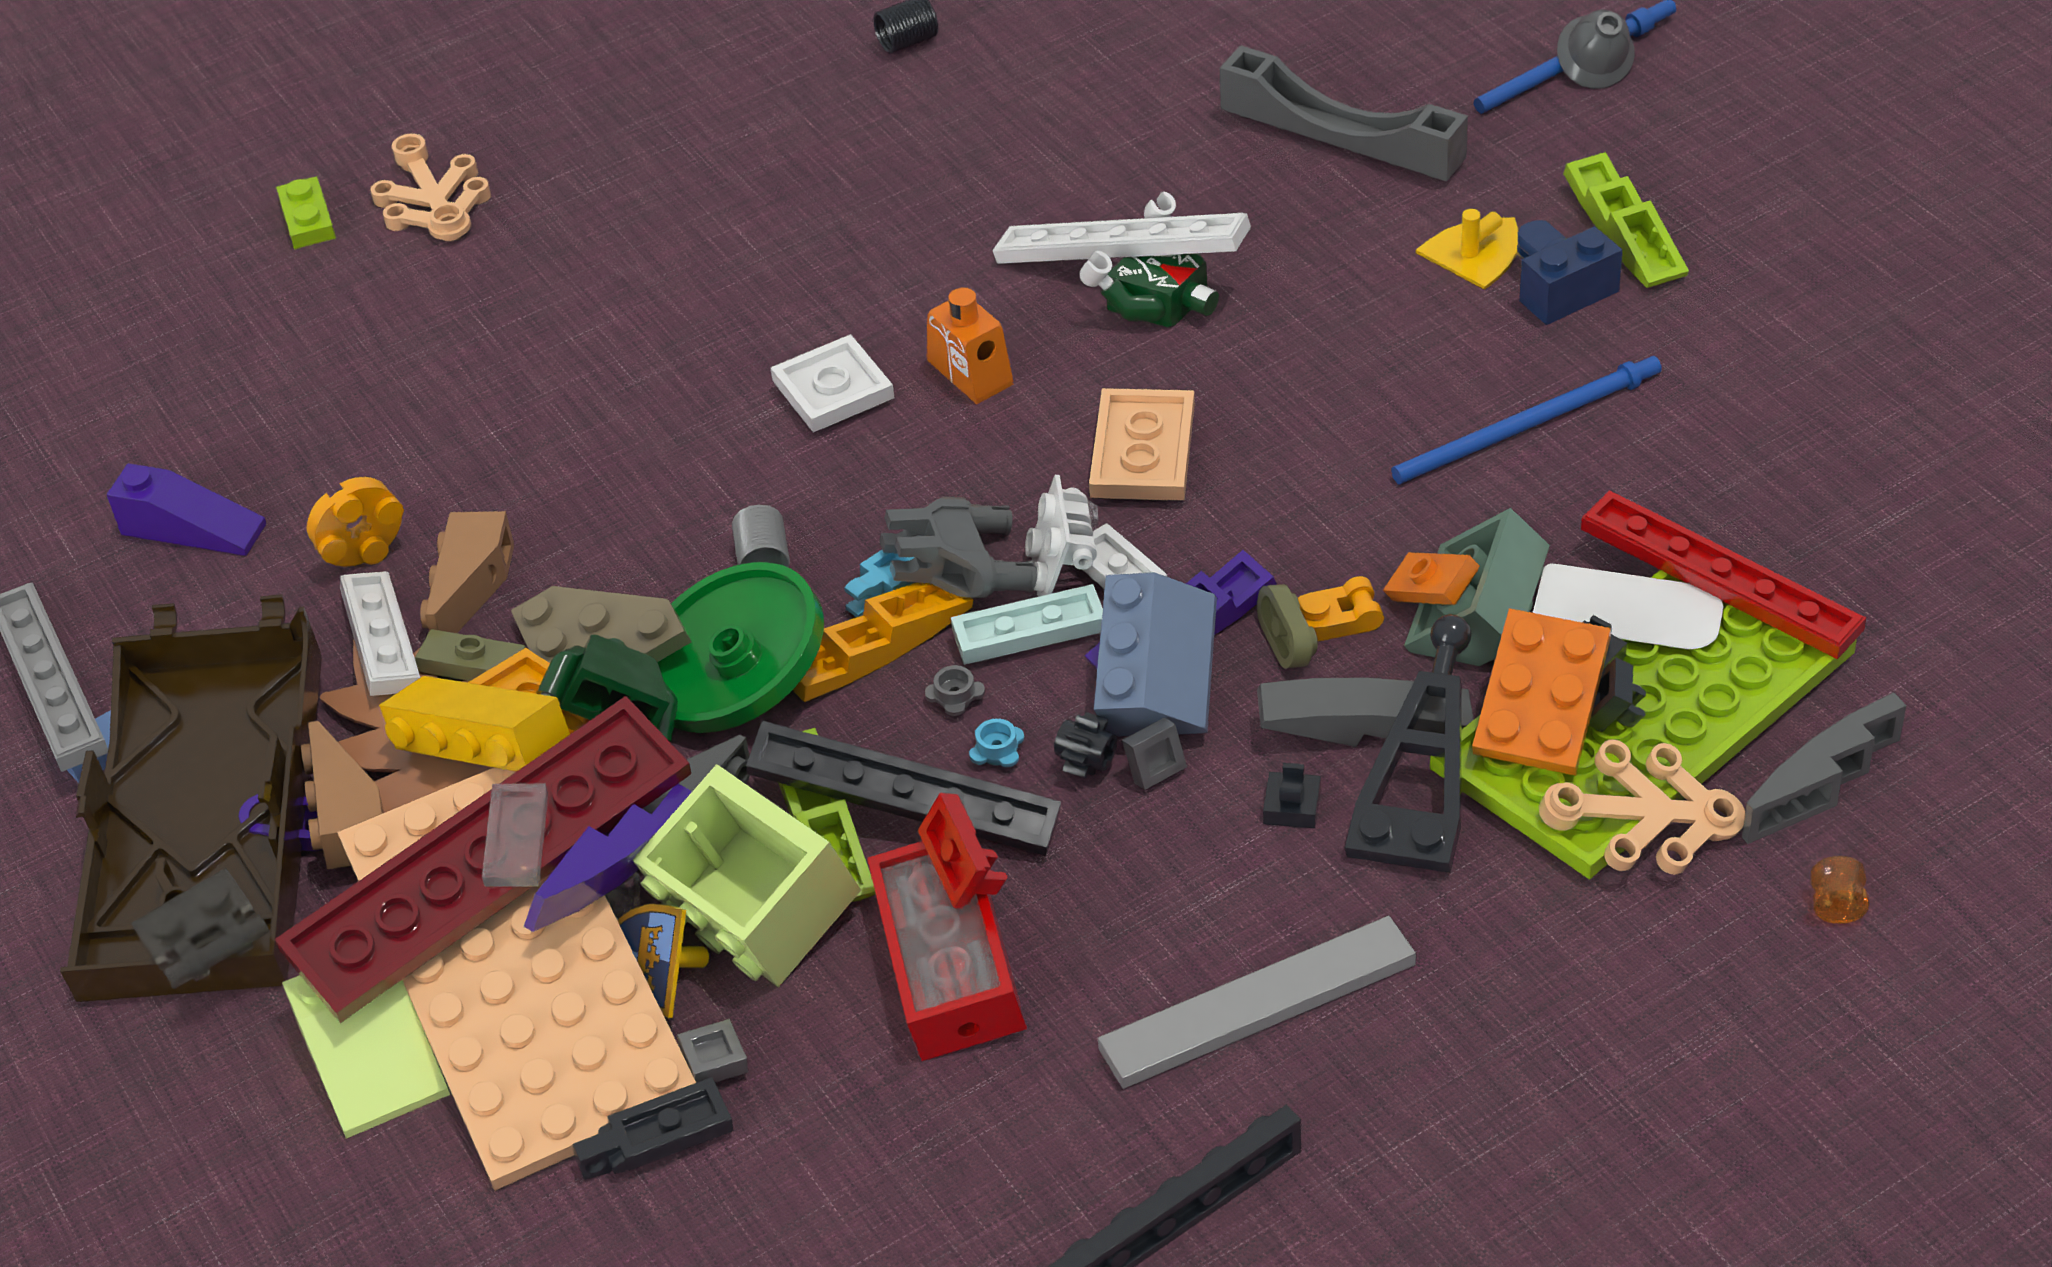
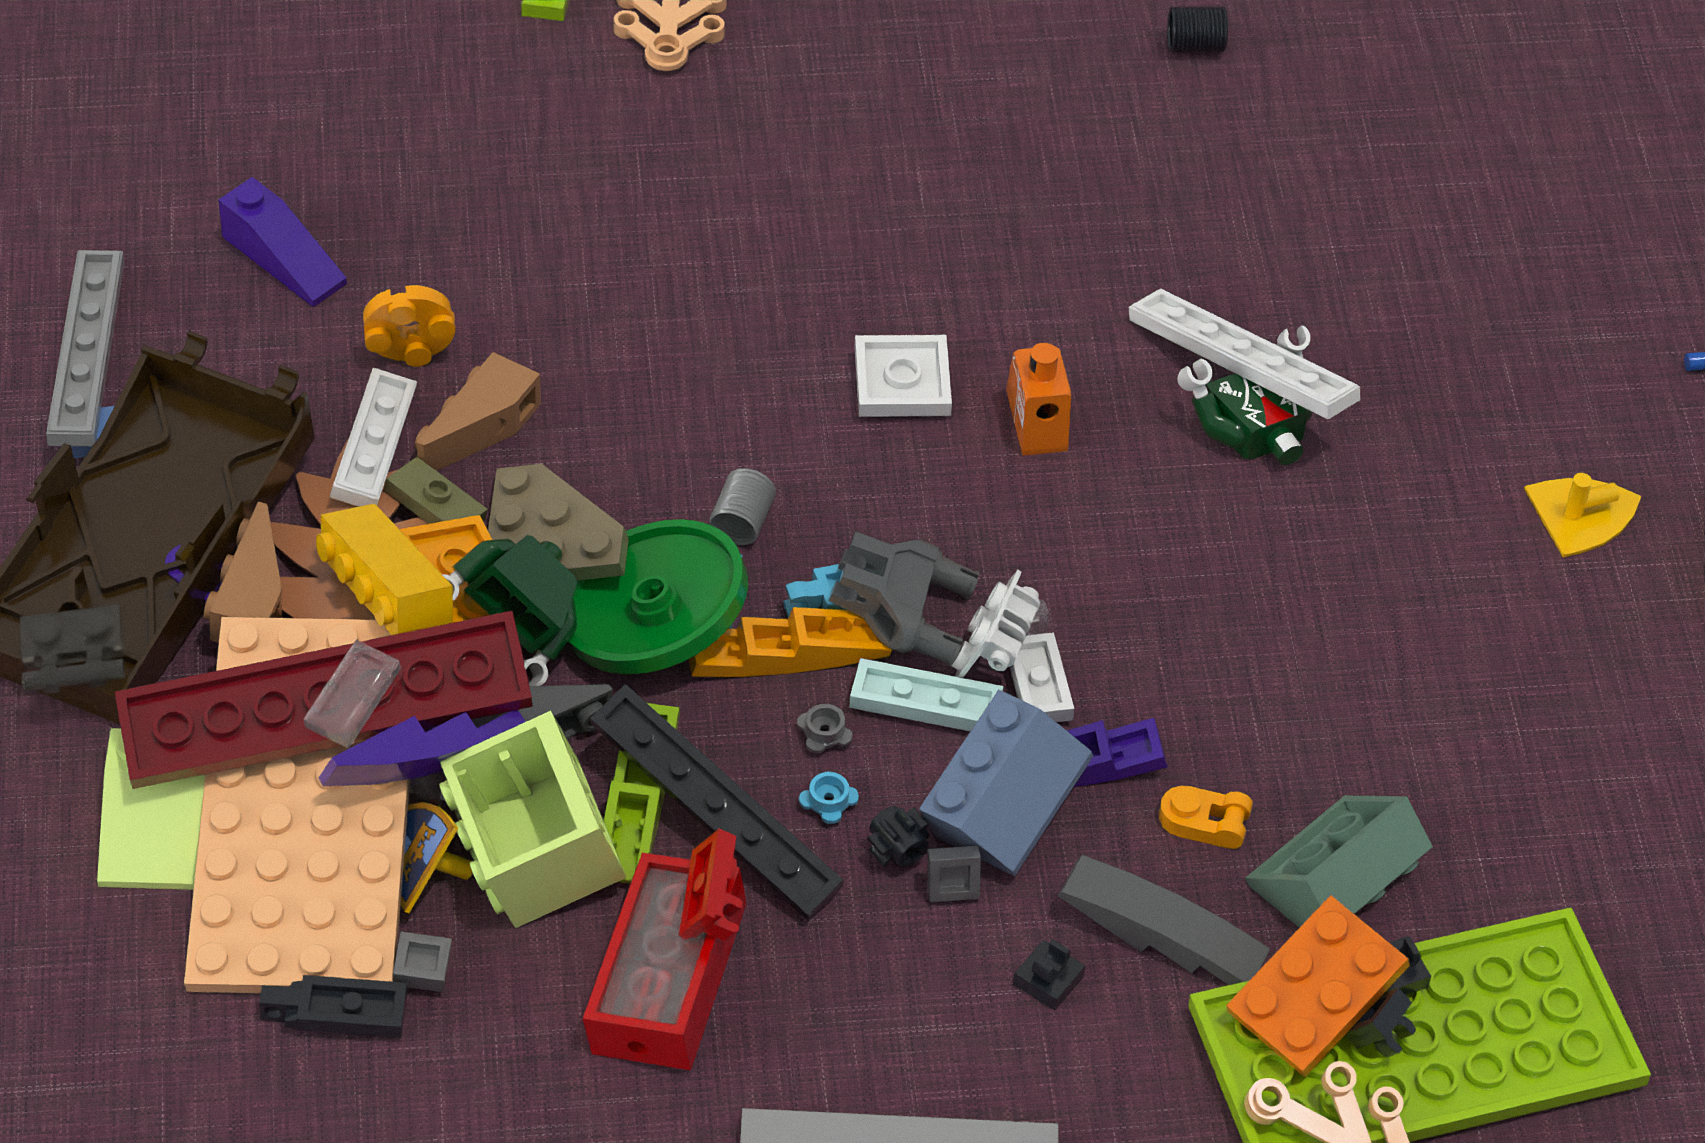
camera: 20 degrees right, 5 degrees up
(1142, 444) = (1138, 568): light nougat plate -> none
(1285, 626) = (1149, 795): olive plate -> none
(1410, 835) = (1125, 1059): black plate -> none
(1419, 139) = (1591, 371): dark grey arch -> none
(1431, 578) = (1301, 827): orange plate -> none
(1563, 272) = (1640, 577): dark blue brick -> none
(1627, 375) = (1631, 710): blue bar -> none
(1634, 605) = (1463, 941): white sticker -> none
(1724, 574) = (1570, 953): red tile -> none

